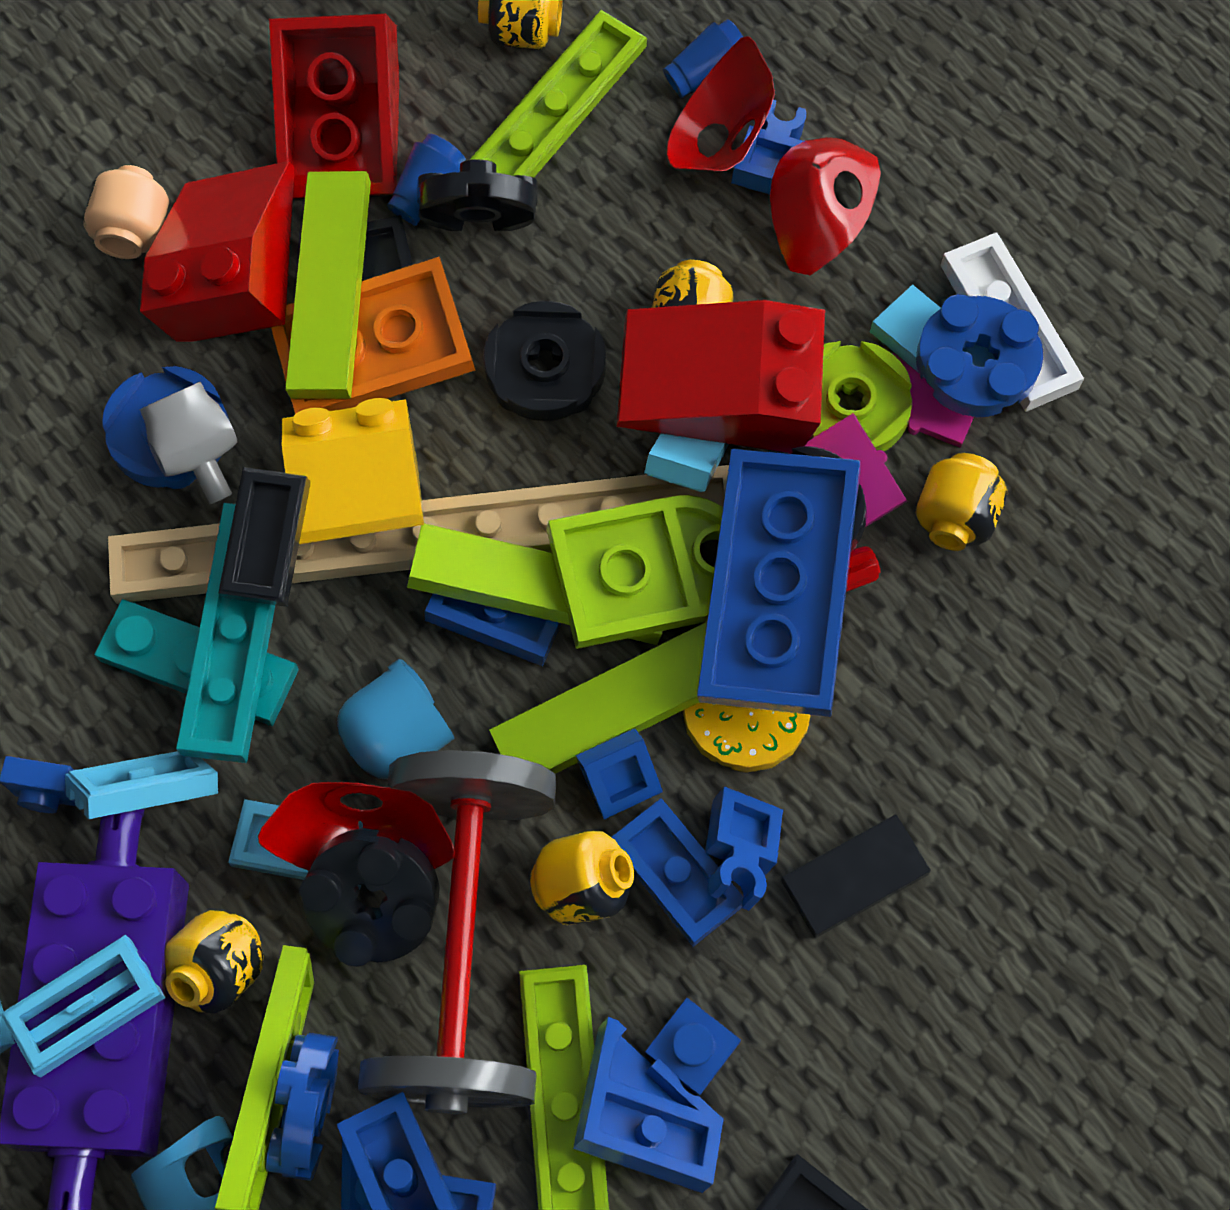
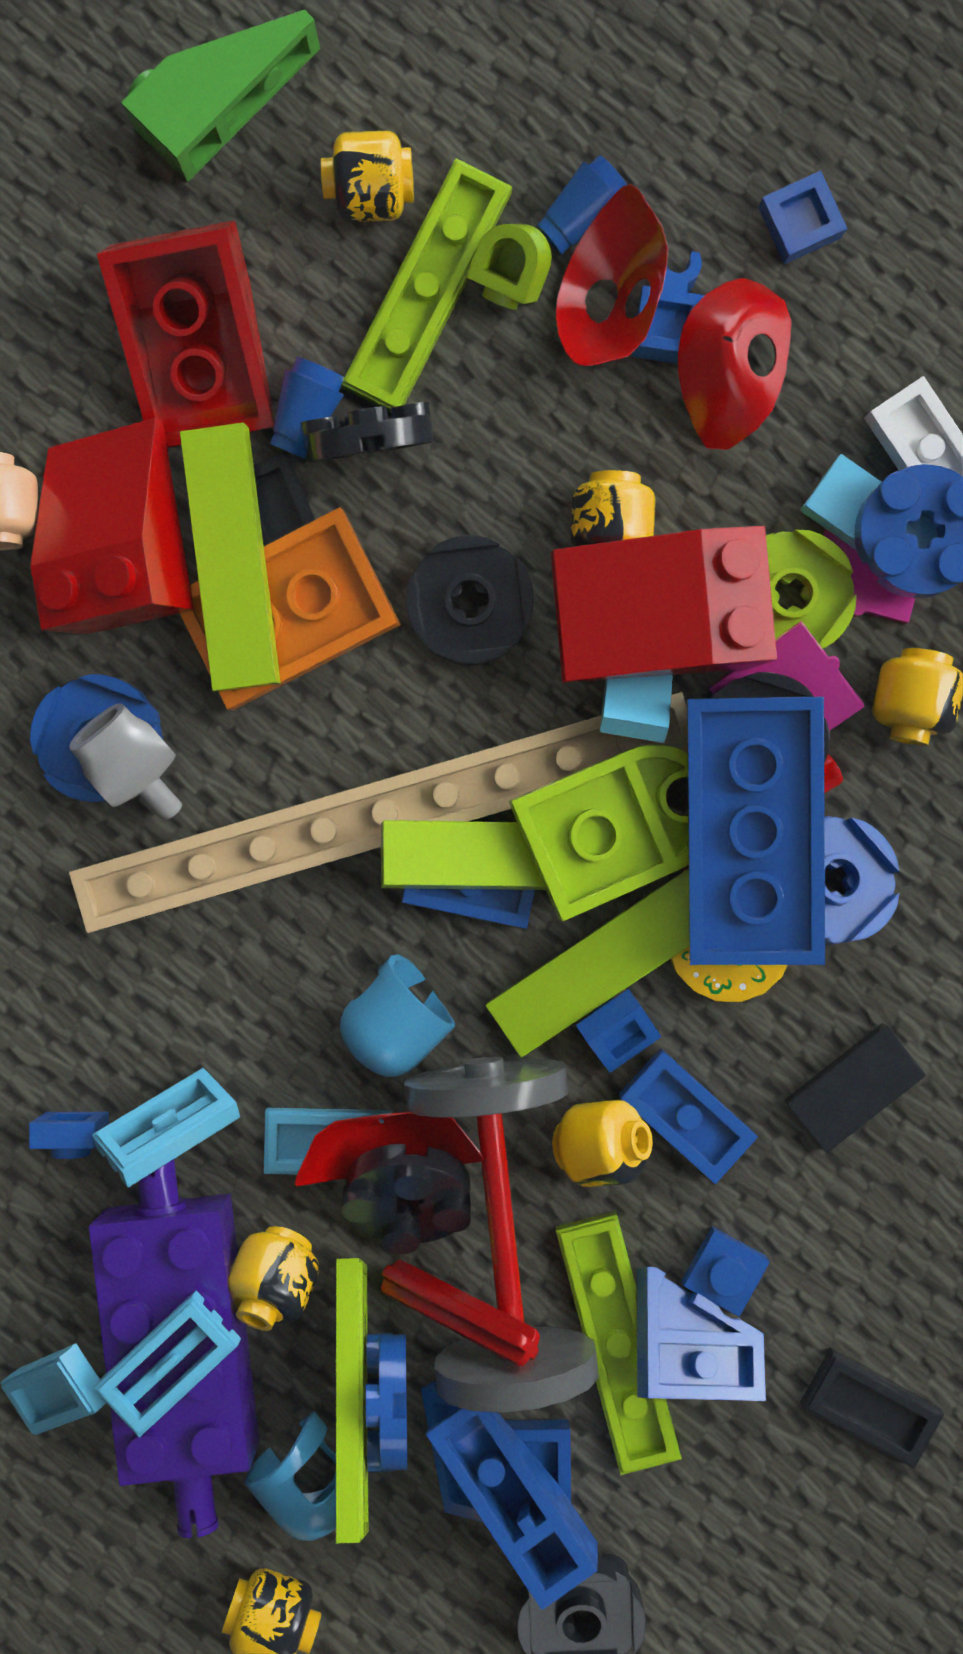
camera: 15 degrees left, 20 degrees up
(164, 652) = (186, 979): teal plate -> none
(225, 668) = (220, 961): teal plate -> none
(264, 537) = (231, 871): black tile -> none
(357, 467) = (300, 773): yellow slope -> none
(401, 1016) = (461, 1313): none -> red axle
(634, 91) = (511, 264): none -> lime plate
(746, 839) = (749, 1077): blue plate -> none
(894, 667) = (868, 882): none -> plate
(902, 96) = (802, 217): none -> blue plate

